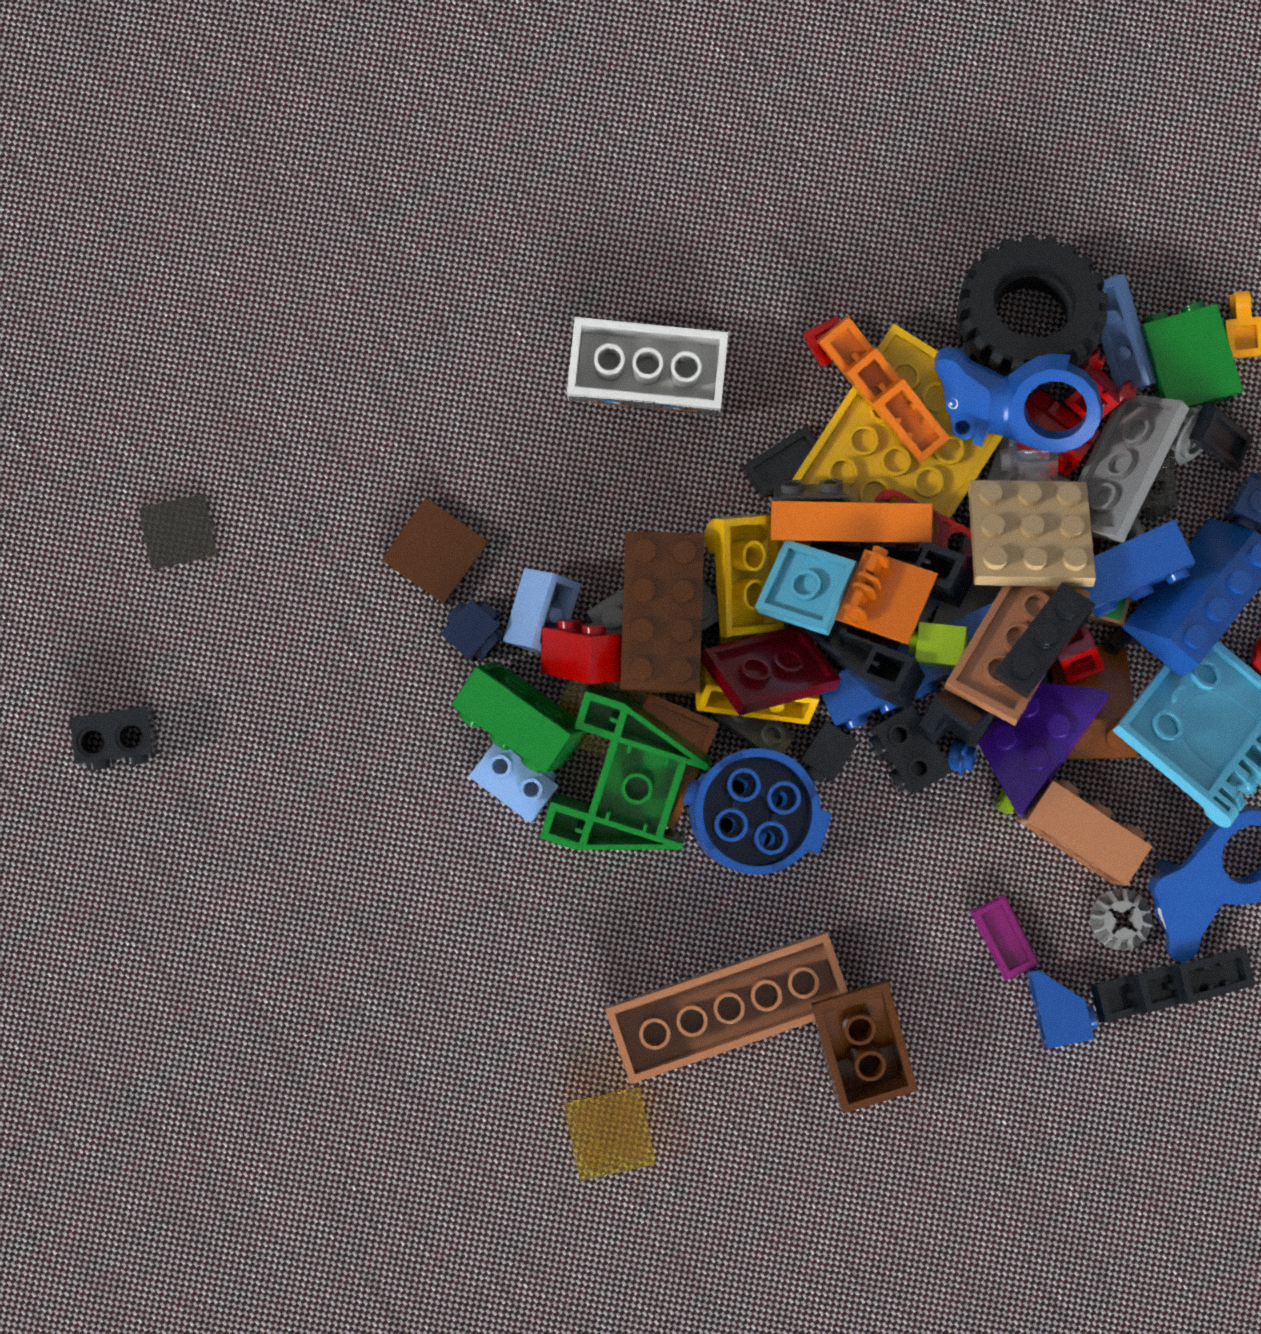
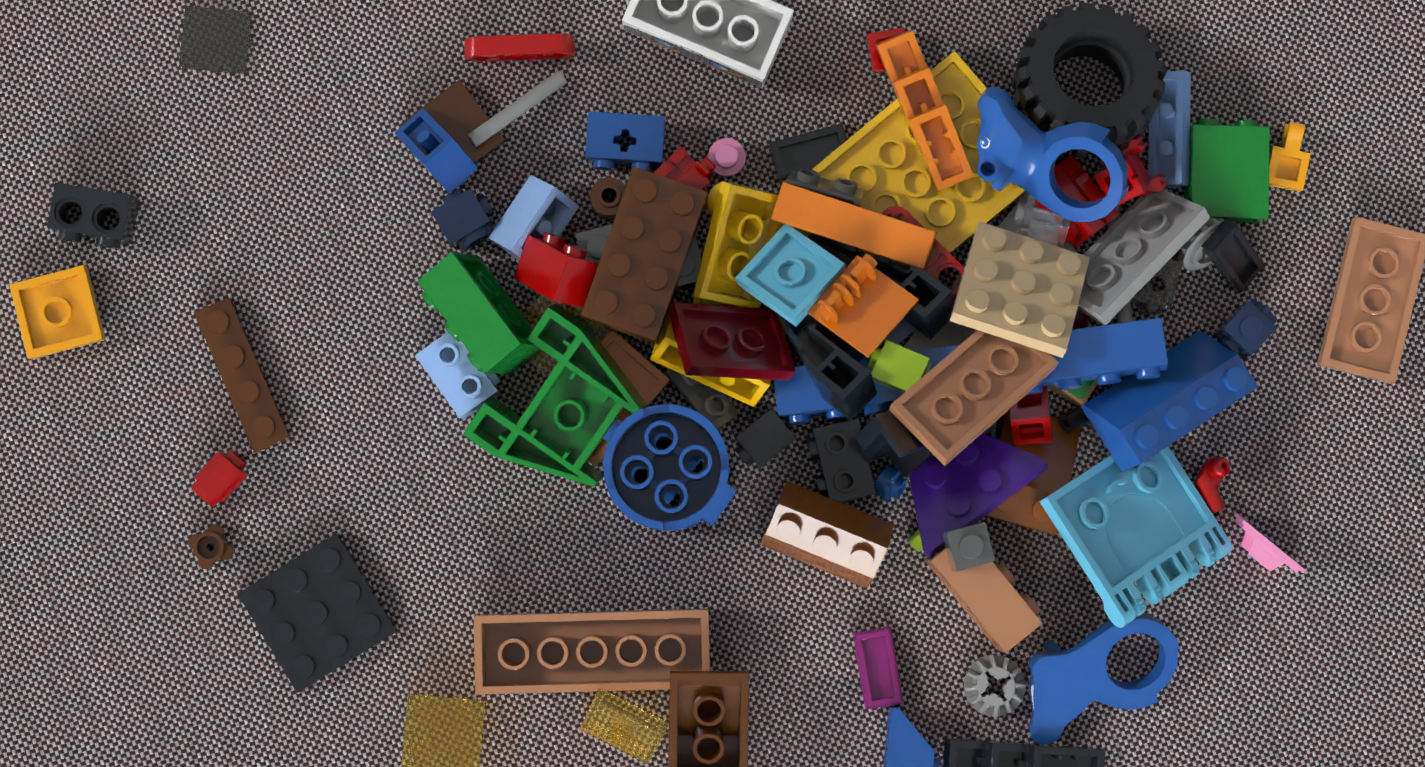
camera: 15 degrees right, 0 degrees up
(109, 841) = (57, 312): none -> light orange plate
(306, 846) = (242, 375): none -> reddish brown plate
(316, 951) = (220, 477): none -> red brick
(317, 1021) = (200, 542): none -> reddish brown plate
(426, 572) = (436, 150): none -> blue slope
(451, 1052) = (317, 612): none -> black plate
(474, 448) = (519, 47): none -> red beam
(490, 509) = (516, 109): none -> light grey bar
(604, 579) = (603, 209): none -> reddish brown brick
(617, 491) = (608, 128): none -> blue brick
(672, 518) = (685, 170): none -> red piece
(706, 492) = (727, 156): none -> bright pink plate
(781, 1069) = (624, 726): none -> clear yellow plate
(918, 825) = (827, 534): none -> dark orange slope
(1044, 640) = (998, 393): black plate -> none
(1060, 795) = (968, 546): none -> dark grey brick

